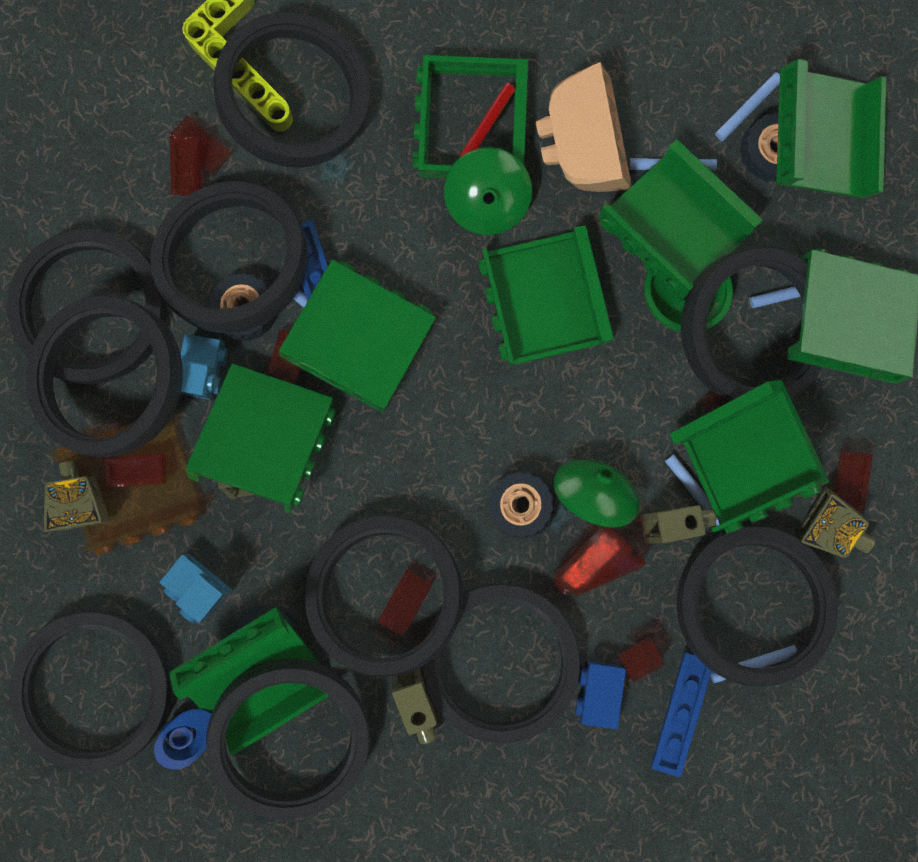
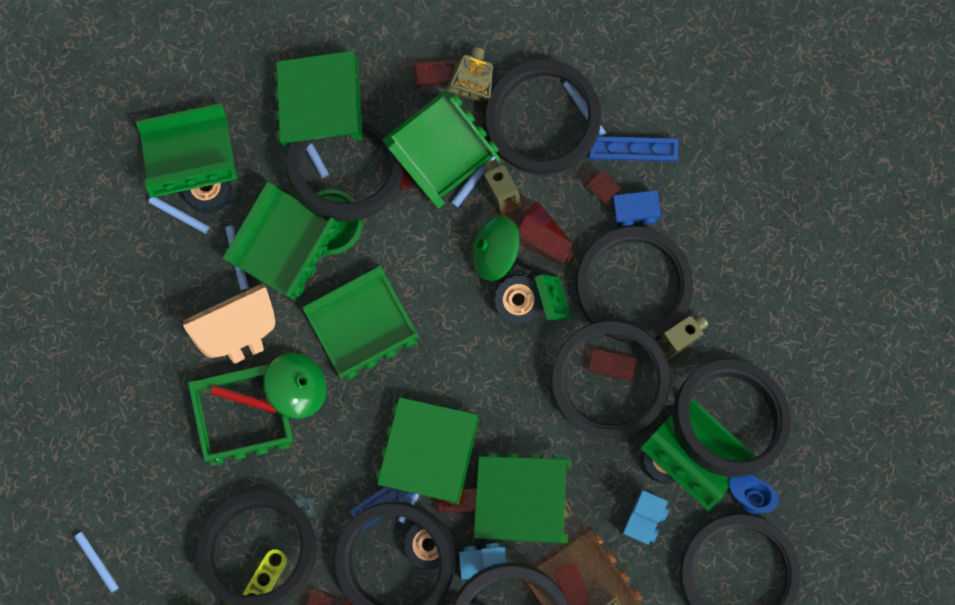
camera: 105 degrees left, 5 degrees down
(511, 549) = (553, 297): none -> green plate

